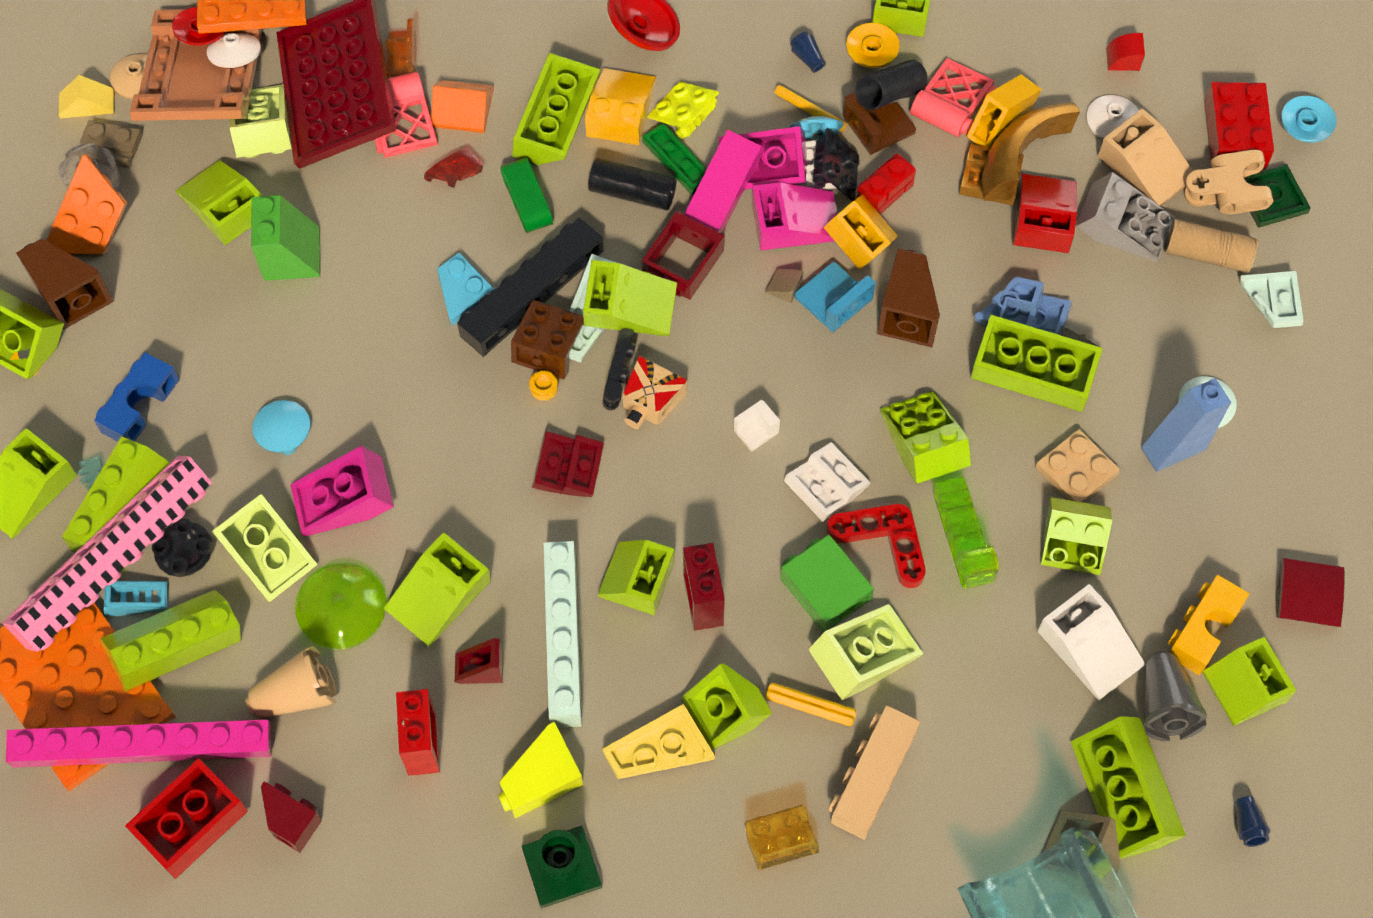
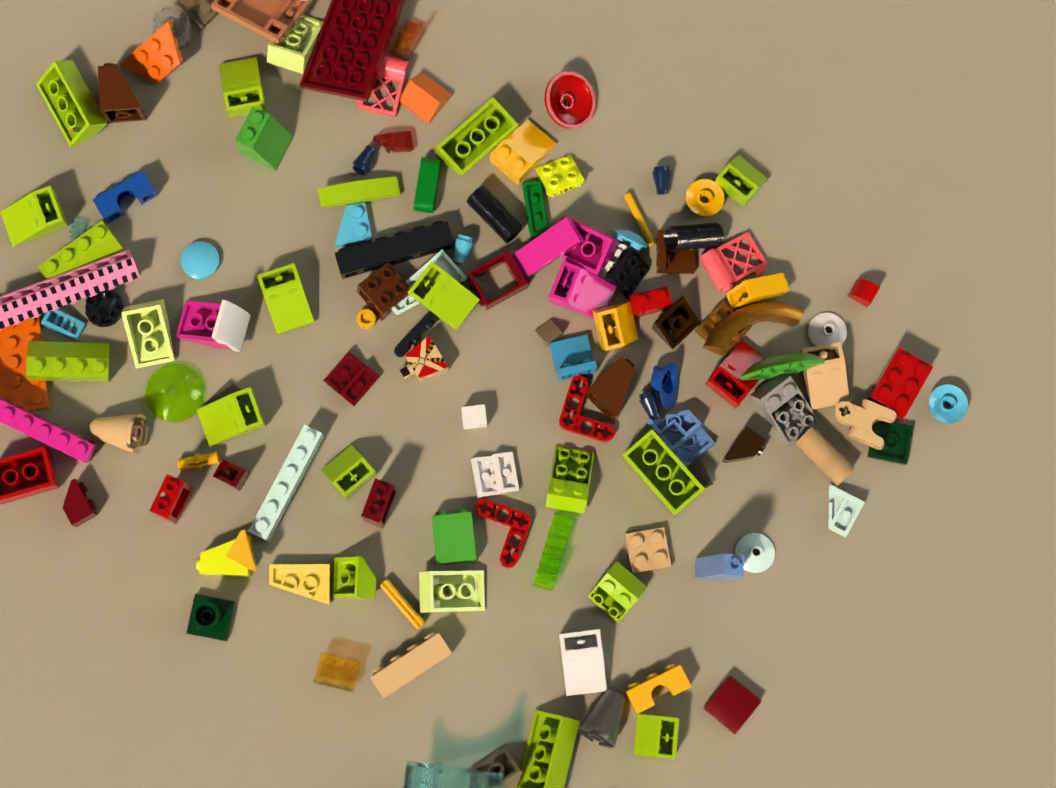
camera: 25 degrees right, 15 degrees up
(373, 470) = (231, 325): none -> white slope
(423, 409) = (285, 298): none -> lime slope
(425, 670) = (198, 461): none -> yellow pin
(429, 208) = (363, 162): none -> dark blue cone
(443, 243) = (358, 191): none -> lime slope
(559, 746) = (242, 551): none -> yellow slope
(615, 242) = (461, 248): none -> medium azure cone
(887, 363) = (577, 419): none -> red beam
(932, 193) = (676, 323): none -> dark brown slope
(963, 264) = (665, 382): none -> blue piece
(964, 298) = (650, 403): none -> dark blue cone
(1099, 161) = (781, 364): none -> bright green brick
(1111, 285) = (745, 447): none -> dark brown slope

